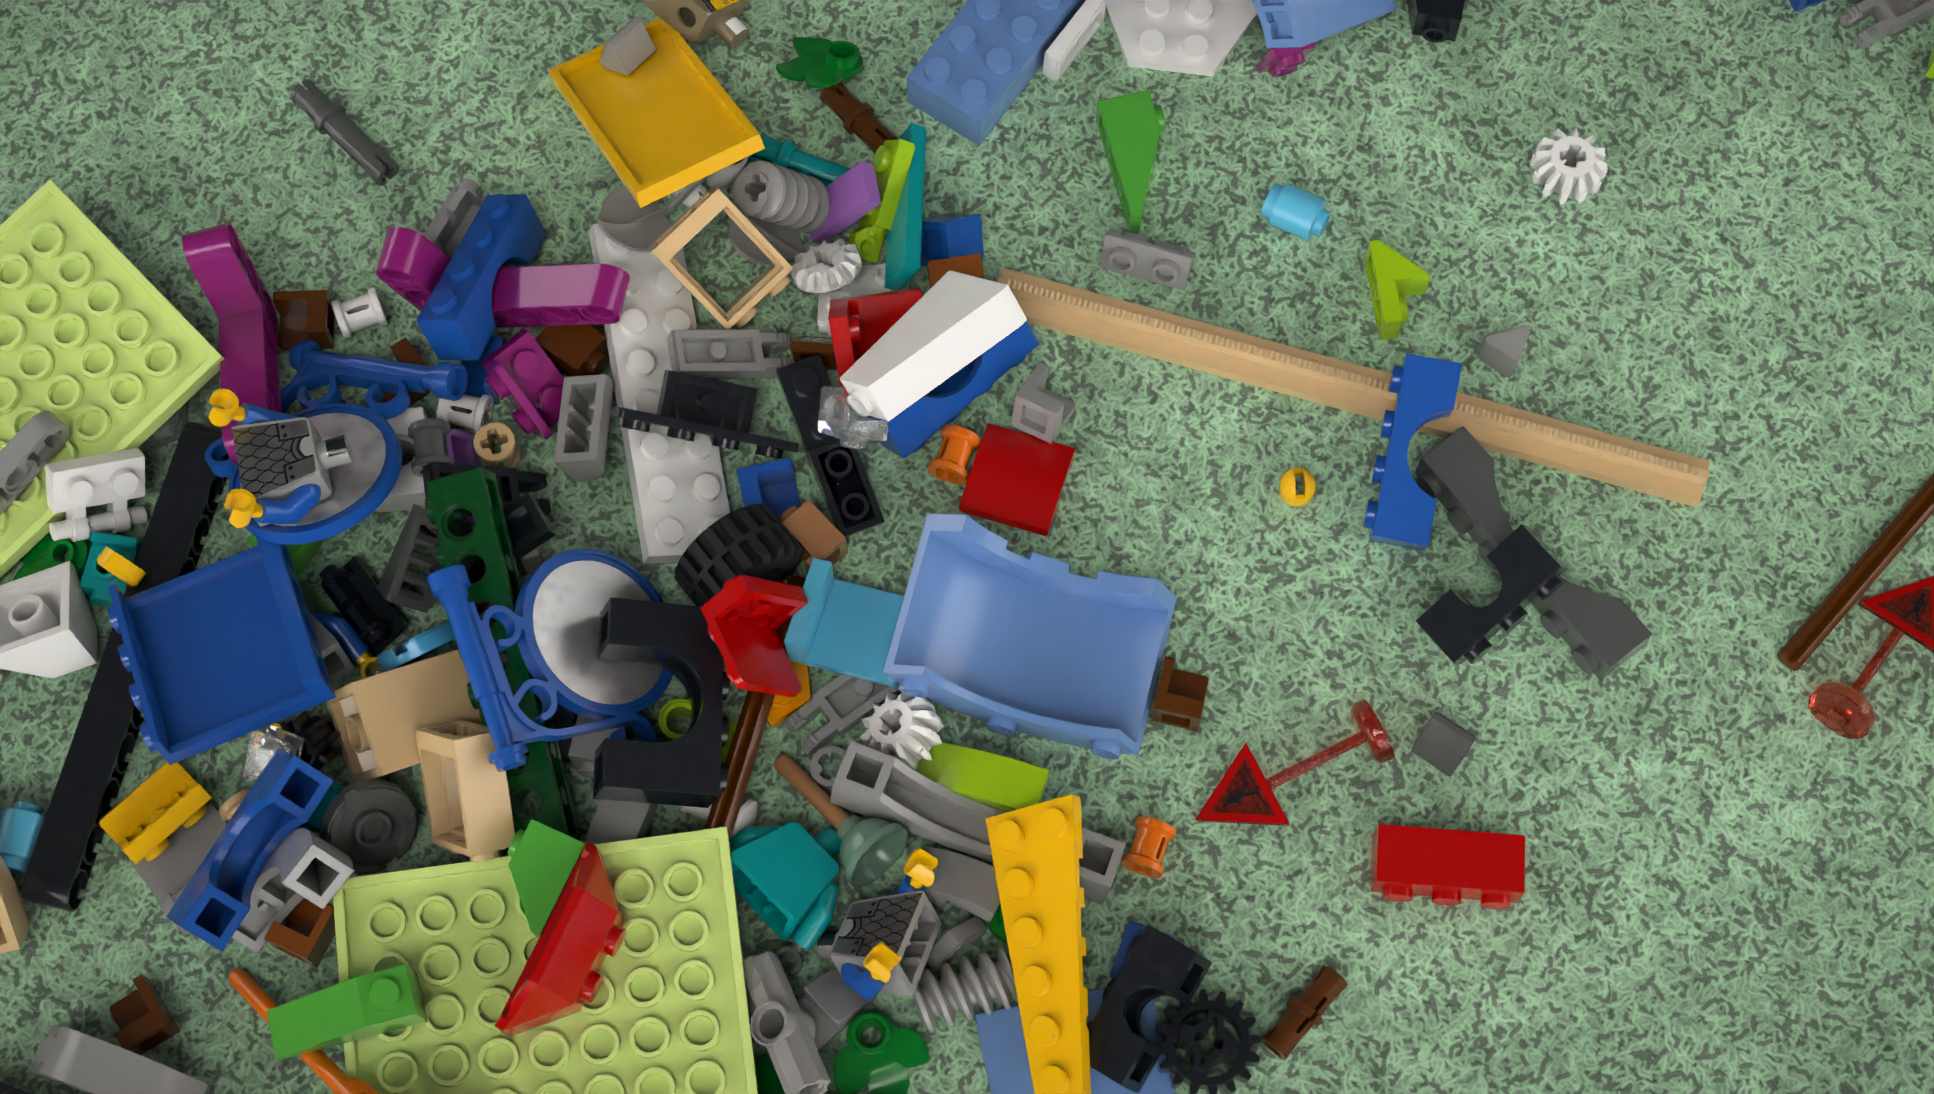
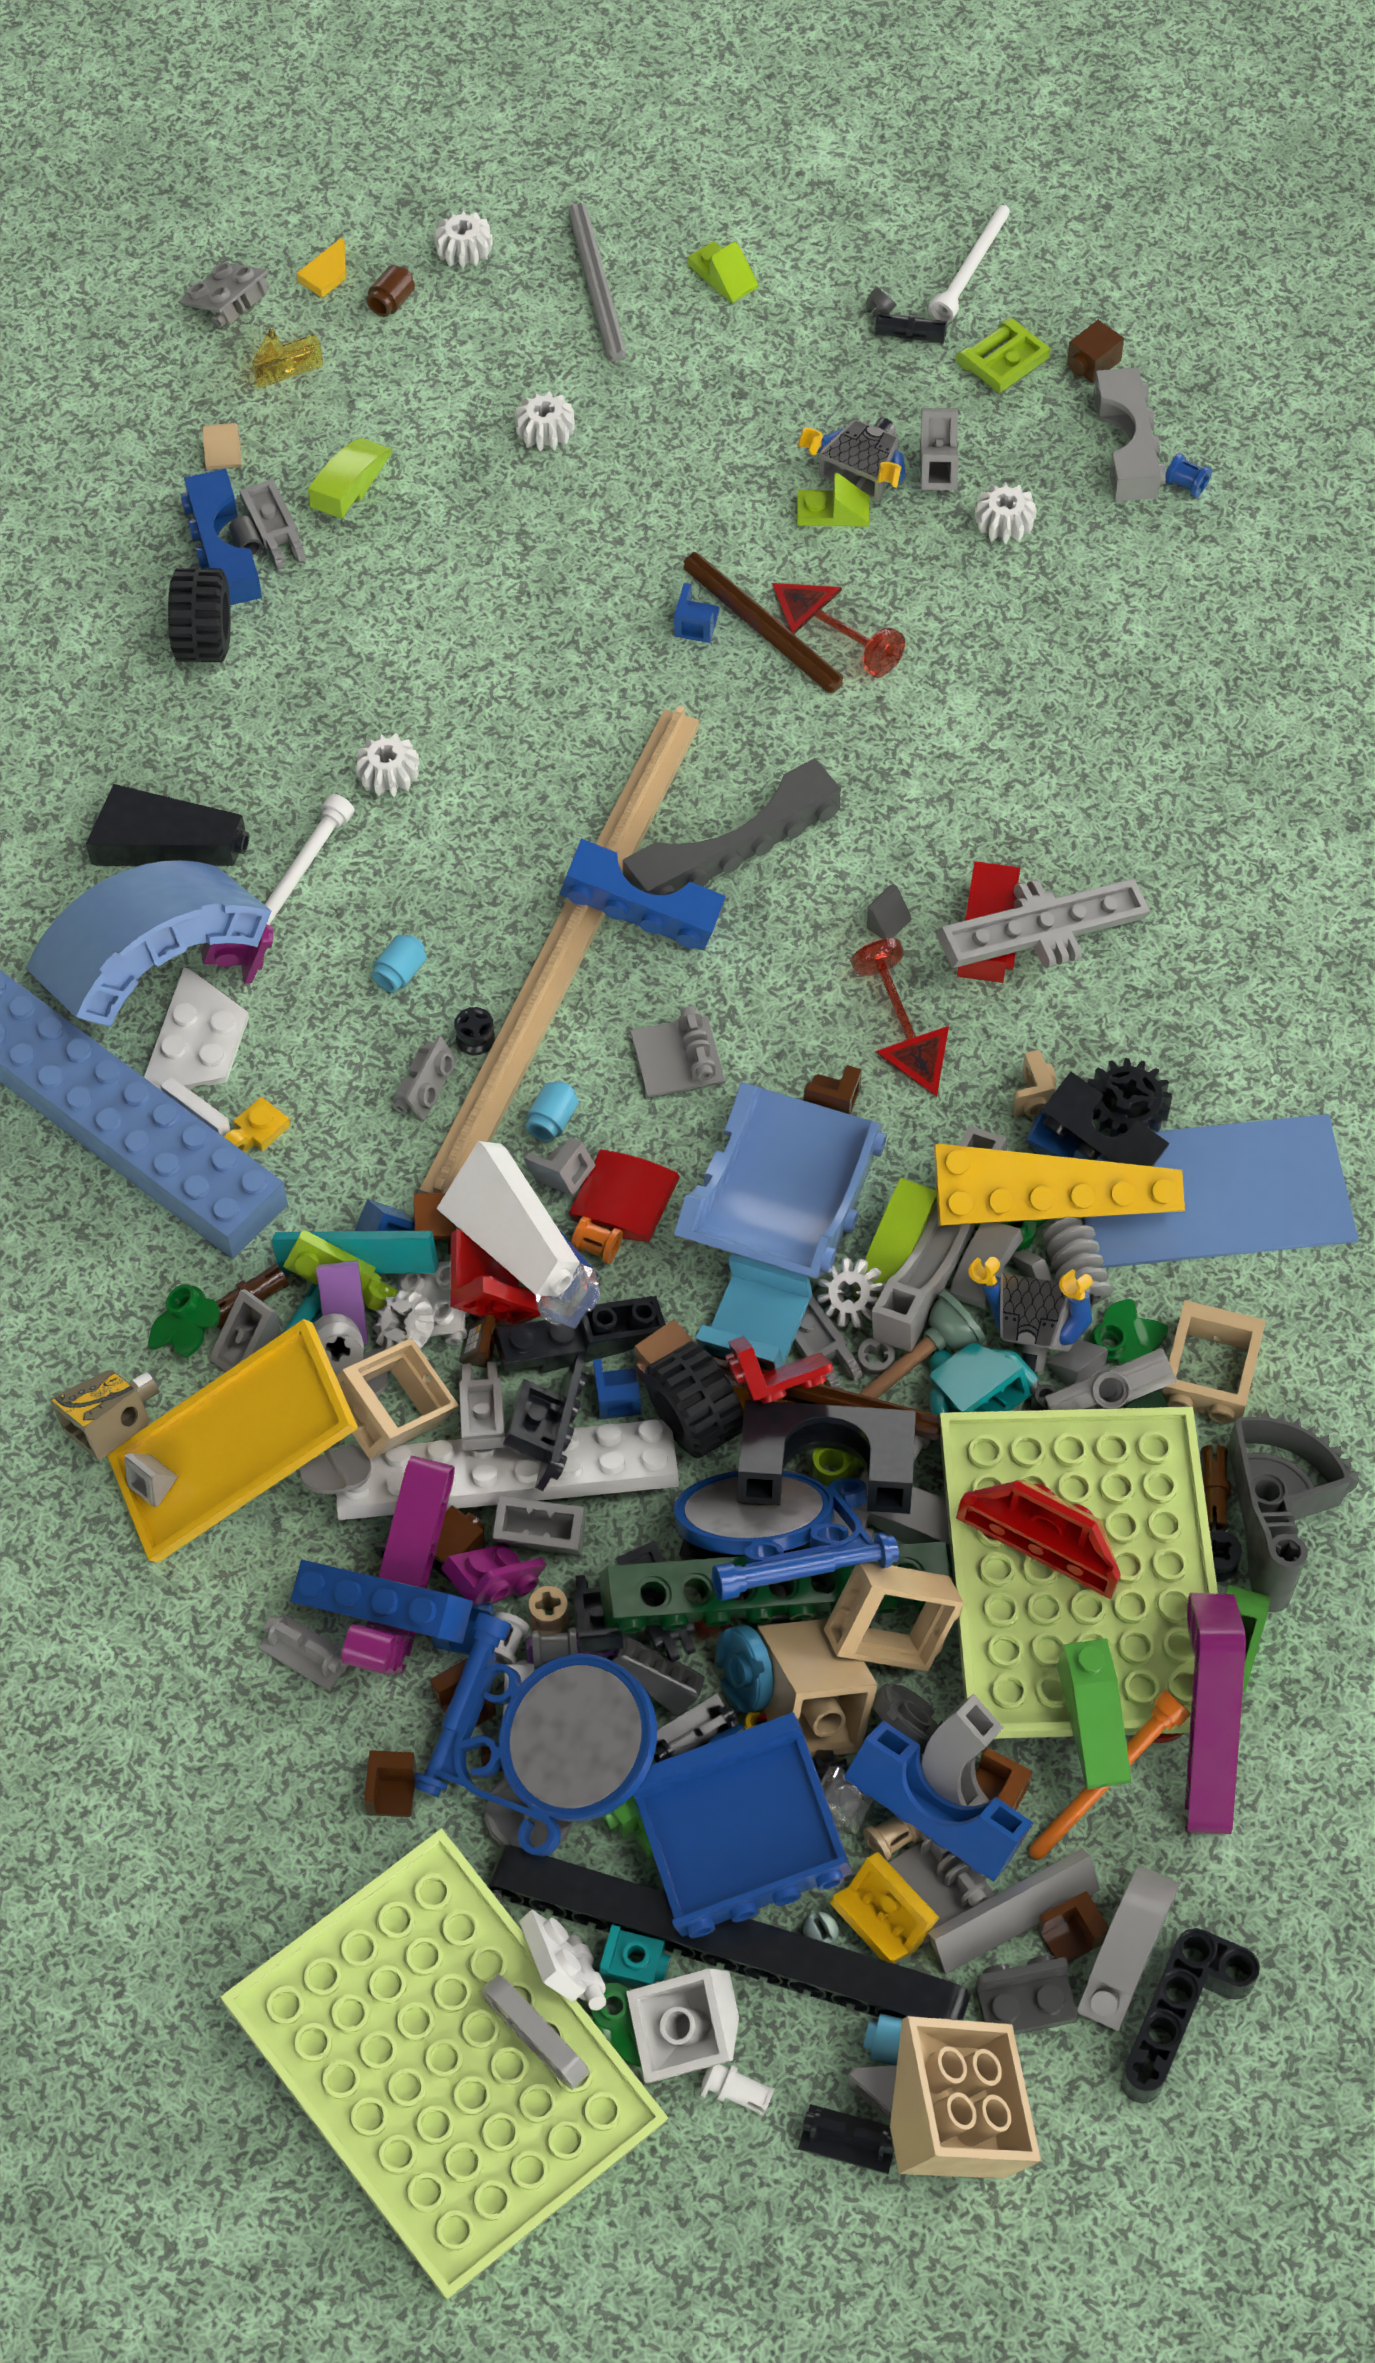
camera: 85 degrees left, 10 degrees down
(67, 971) = (1027, 1995): none -> dark grey bracket
(120, 567) = (646, 1928): yellow tile -> none
(146, 763) = (829, 1923): none -> light aqua hinge
(161, 952) = (1011, 1911): none -> light grey tile
(245, 319) = (464, 1811): magenta beam -> none
(278, 461) = (583, 1740): torso -> none
(332, 120) = (172, 1757): dark grey pin -> none
(359, 313) = (388, 1729): white bush -> none
(541, 869) = (983, 1546): bright green slope -> none
(807, 120) = (246, 1330): none -> light grey slope
(1067, 102) = (258, 1126): none -> yellow plate
(1117, 390) = (551, 1111): none -> medium azure brick
(1130, 139) = (319, 1078): bright green slope -> none
(1148, 847) = (955, 1122): orange bush -> none
(1213, 521) = (678, 1055): none -> light grey hinge
(1219, 290) = (474, 1021): none -> black wheel
(1223, 936) = (1040, 1083): none -> tan bracket
(1288, 487) = (652, 992): yellow hinge -> none
(1304, 1012) = (1101, 1033): reddish brown pin -> none
(1390, 280) = (474, 905): lime slope -> none
(1439, 925) = (1043, 923): none -> light grey hinge
(1491, 121) = (335, 812): none -> white piece
(1504, 349) = (553, 828): light grey slope -> none
(1526, 572) = (764, 826): black arch -> none
(1861, 483) = (694, 619): none -> blue panel

